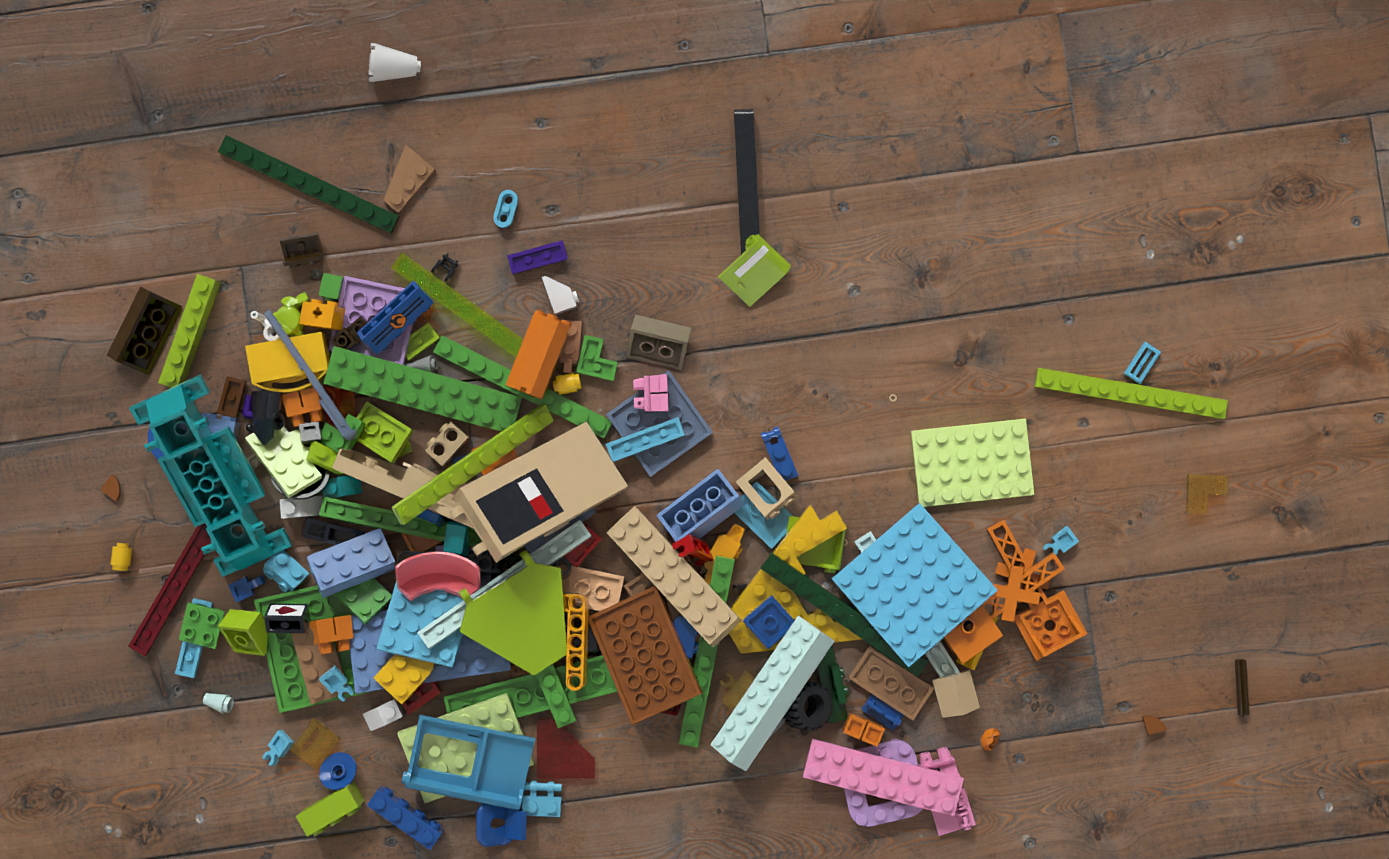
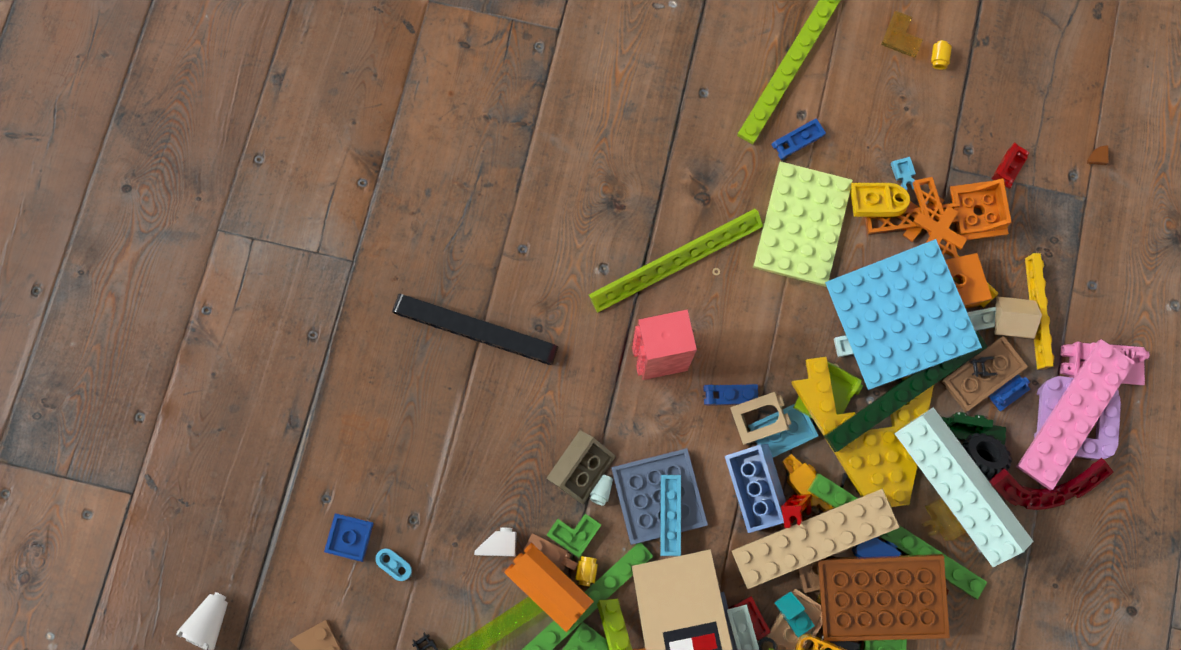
camera: 70 degrees left, 10 degrees down
(514, 158) = (349, 537): none -> blue plate
(537, 257) = (453, 552): dark purple plate -> none
(600, 582) = (794, 614): none -> teal slope
(640, 369) = (601, 491): none -> light aqua cone
(652, 402) = (620, 488): bright pink hips -> none
(755, 269) = (549, 348): lime door -> none
(769, 621) = (889, 464): blue tile -> none
(789, 766) = (1044, 498): none -> dark red plate
(792, 371) = (663, 344): none -> coral brick
(864, 729) = (1023, 414): orange hips -> none
(888, 356) = (676, 260): none -> lime plate
(889, 681) = (985, 373): none -> black piece
(990, 738) = (1067, 303): orange plate -> none
(995, 704) = (1036, 290): none -> yellow plate
(1022, 525) = (878, 199): none -> yellow plate
(1056, 428) = (799, 138): none -> blue plate
(1108, 642) = (1011, 165): none -> red hinge
(1132, 376) = (760, 48): medium azure tile -> none
(1198, 537) = (941, 55): none -> yellow brick
(1242, 687) = (1090, 69): dark brown axle -> none

